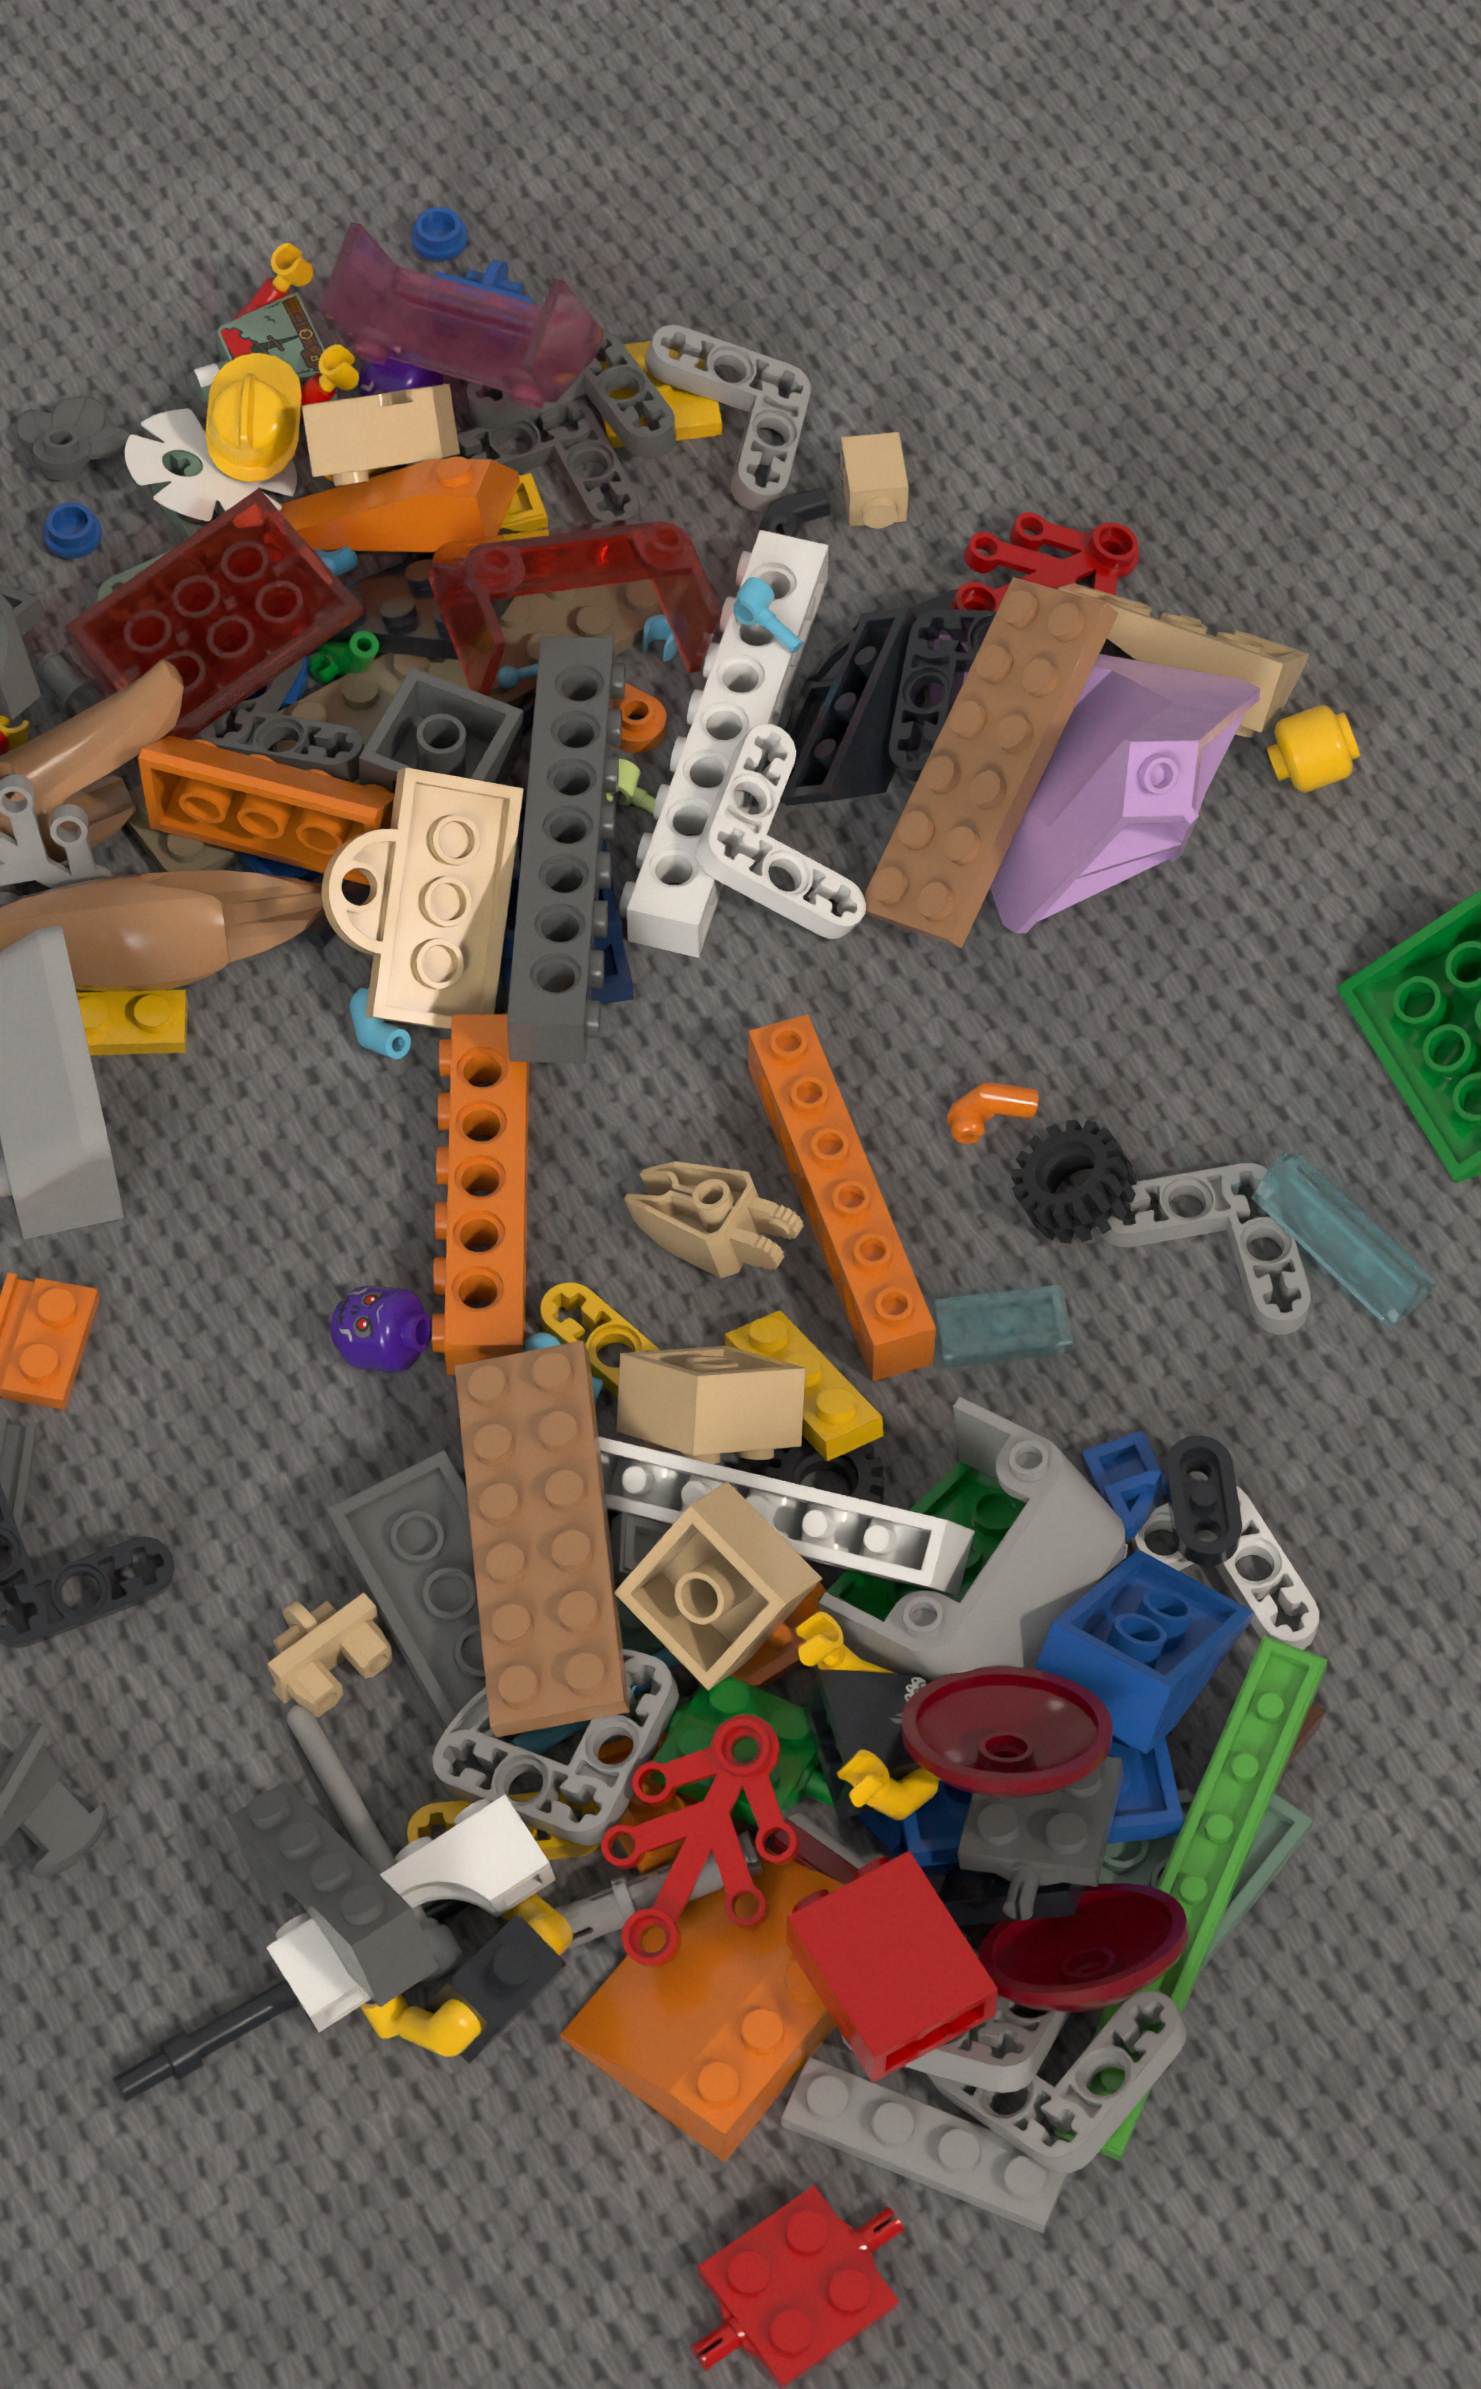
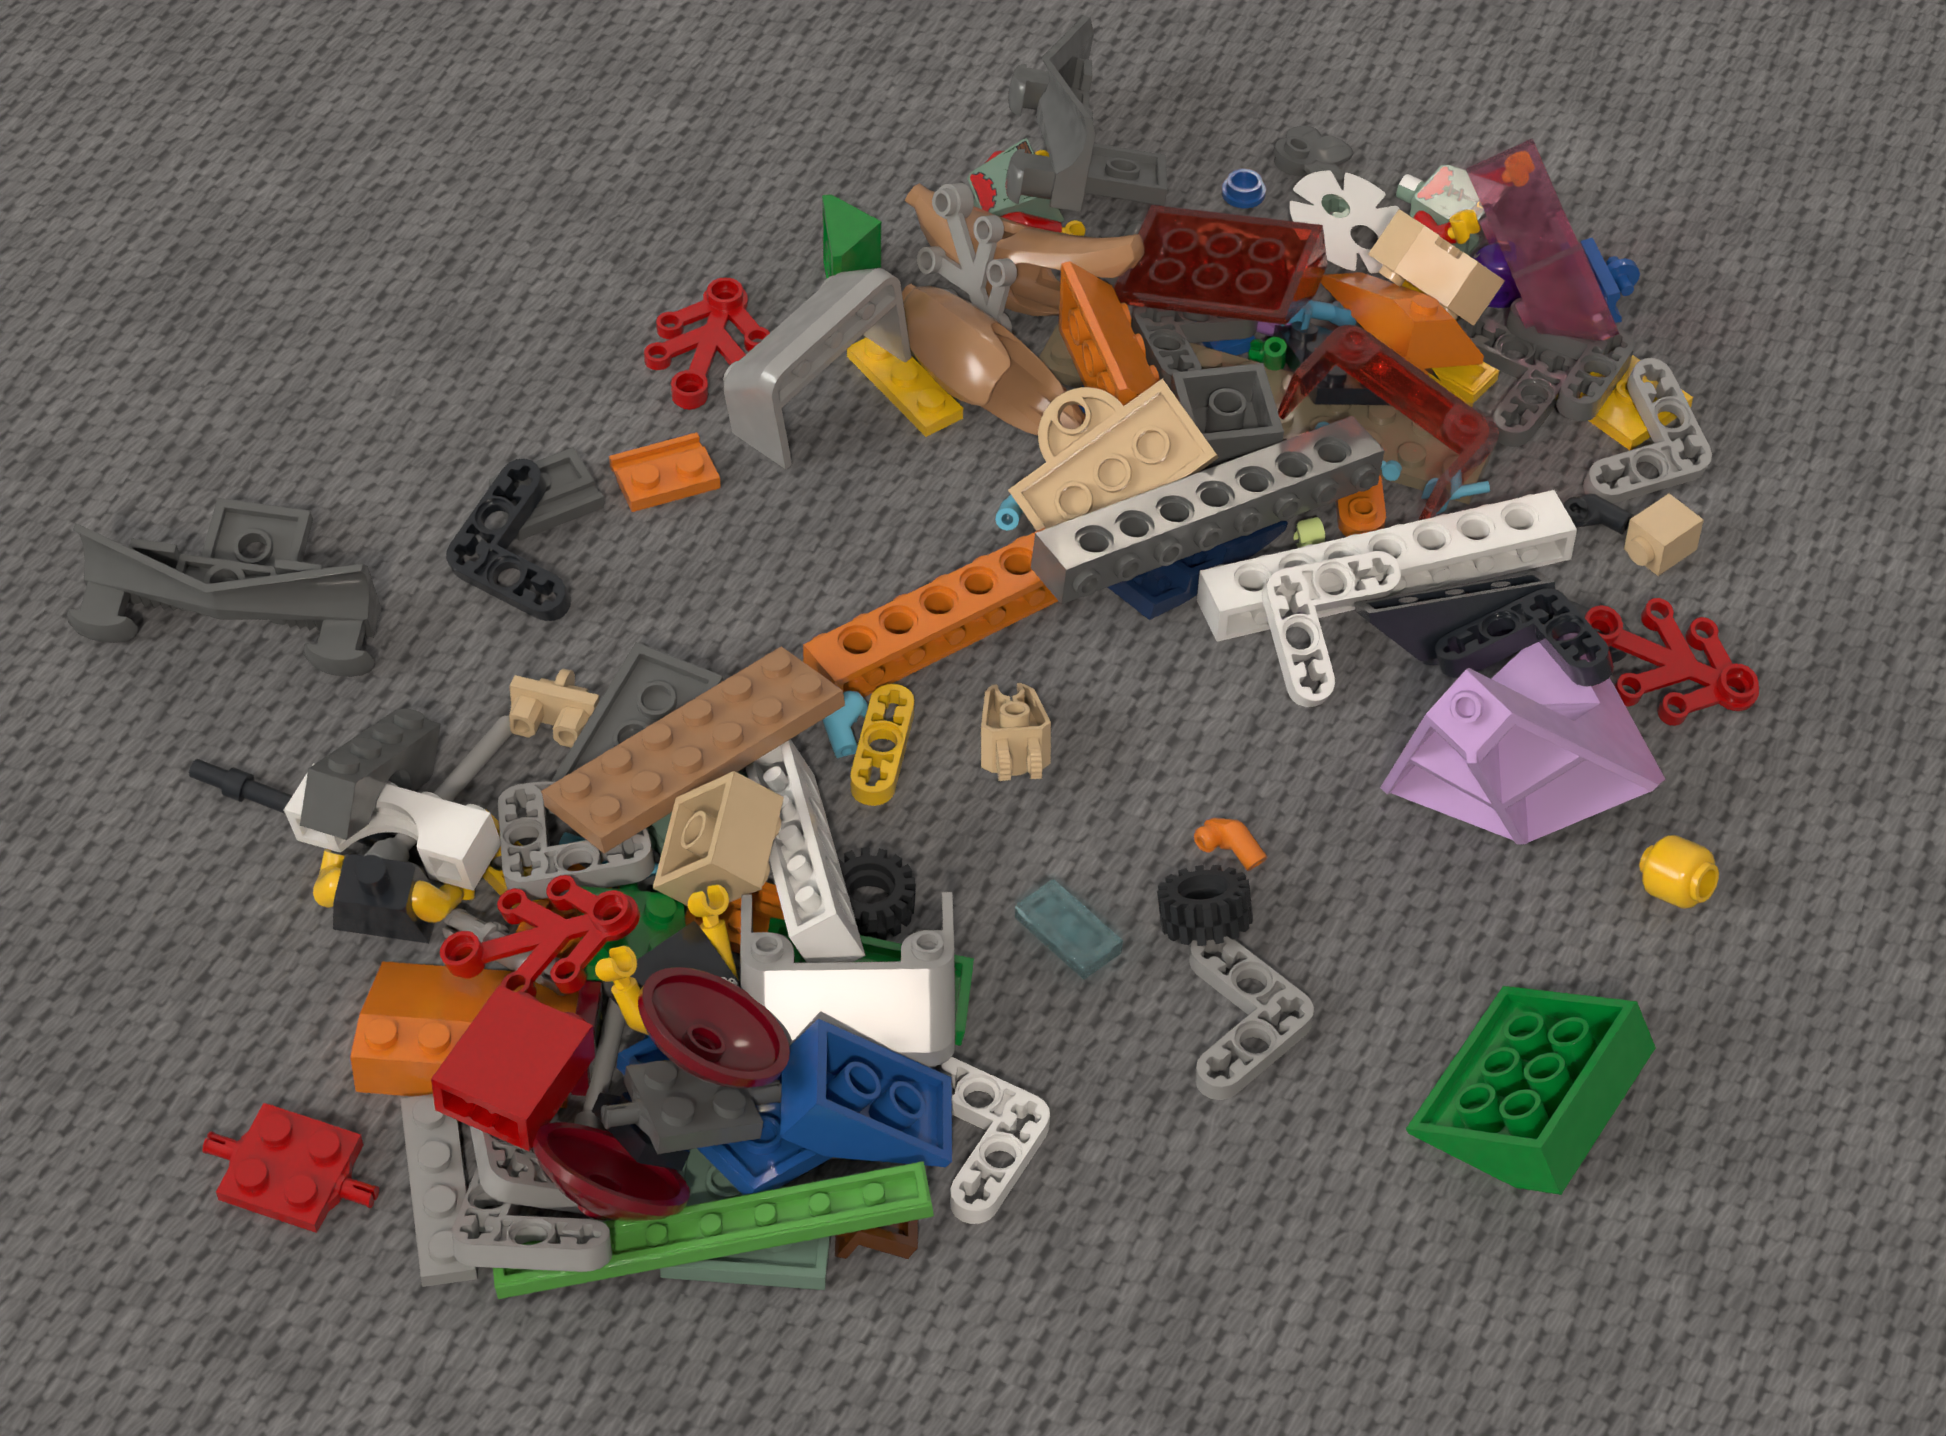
camera: 55 degrees right, 10 degrees down
(253, 417) = (1382, 200): yellow piece -> none
(381, 1328) = (796, 612): dark purple head -> none
(439, 234) = (1637, 235): blue plate -> none
(710, 1402) = (861, 785): tan brick -> none
(752, 606) = (1487, 508): medium azure hand -> none
(833, 1410) = (928, 840): yellow plate -> none
(841, 1198) = (1087, 791): orange brick -> none
(988, 761) = (1516, 659): medium nougat plate -> none
(1127, 1478) = (1005, 1053): blue slope -> none
(1185, 645) = (1695, 795): tan wedge -> none
(1203, 1505) = (1010, 1094): black plate -> none
(1343, 1239) = (1294, 1079): clear light blue panel -> none

